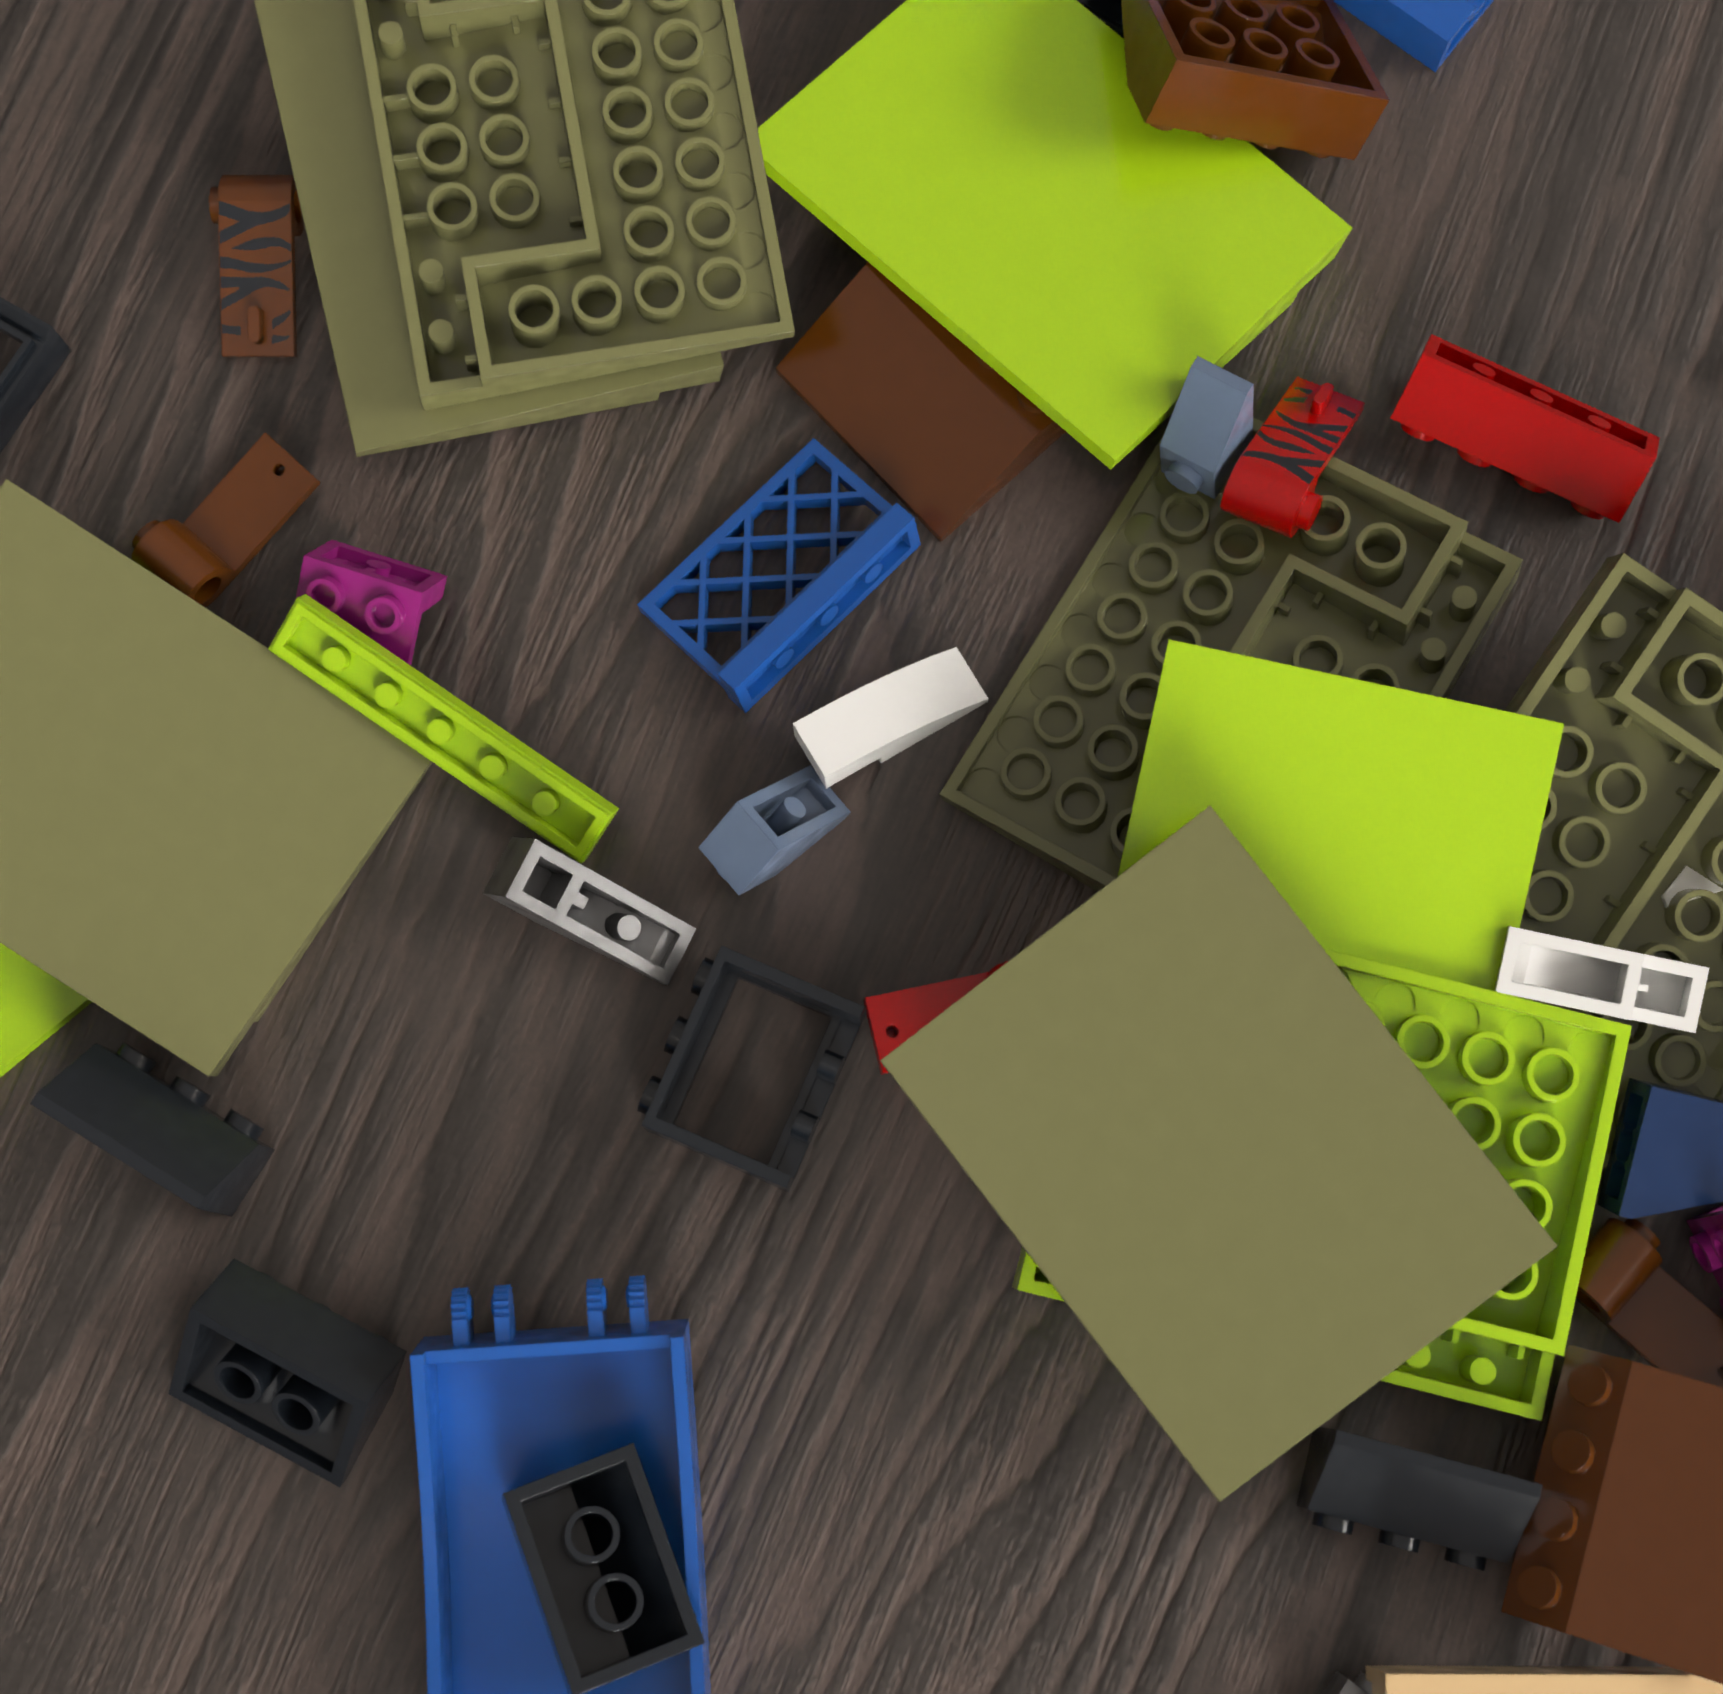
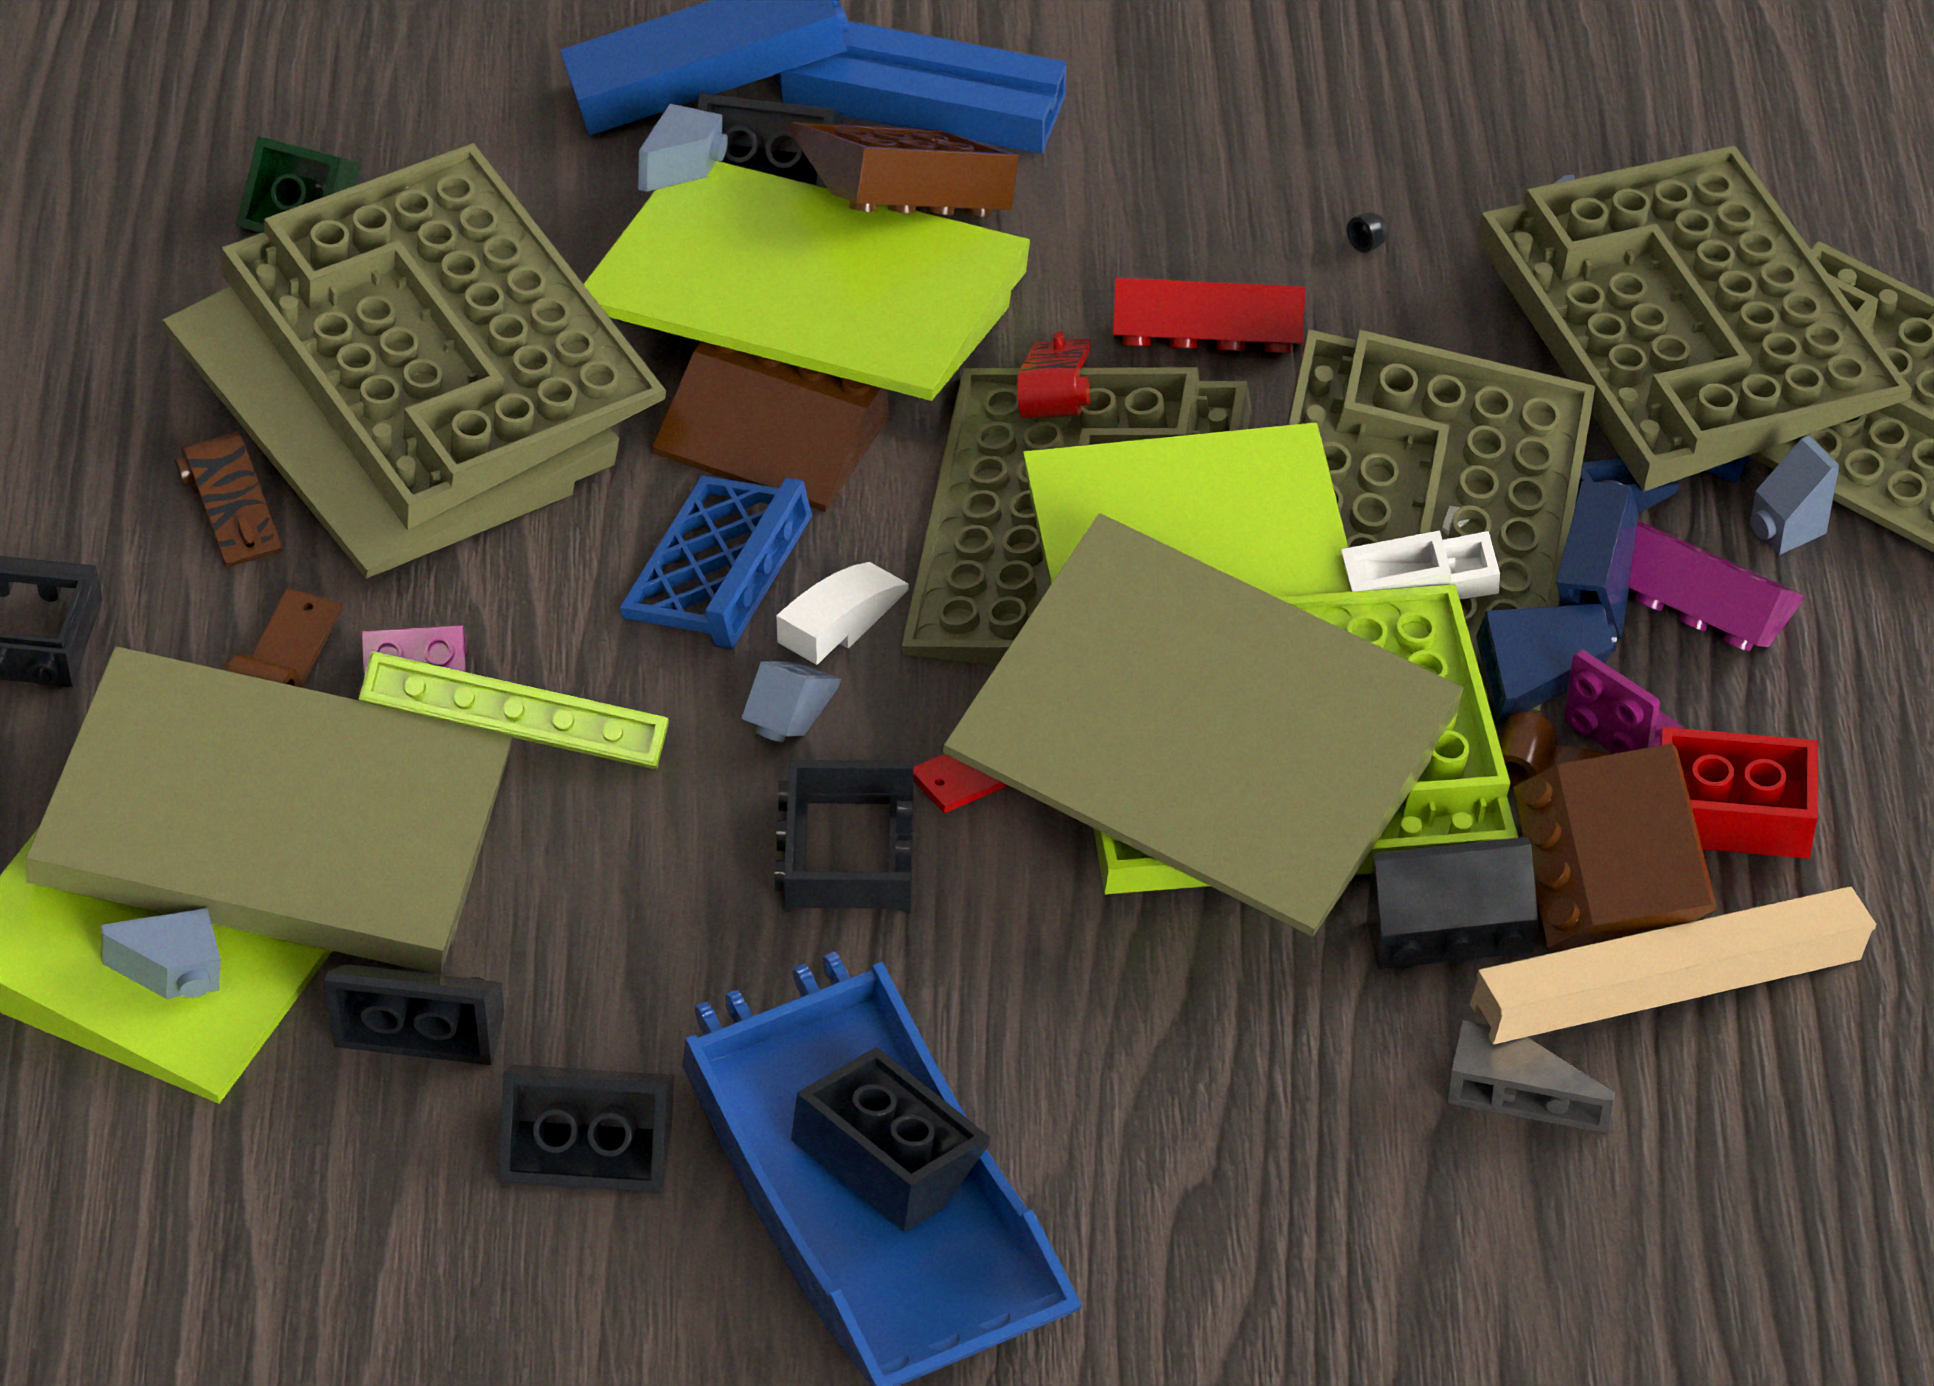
camera: 25 degrees left, 30 degrees down
(588, 909) = (672, 783): flat silver slope -> none
(1207, 429) = (987, 365): sand blue slope -> none

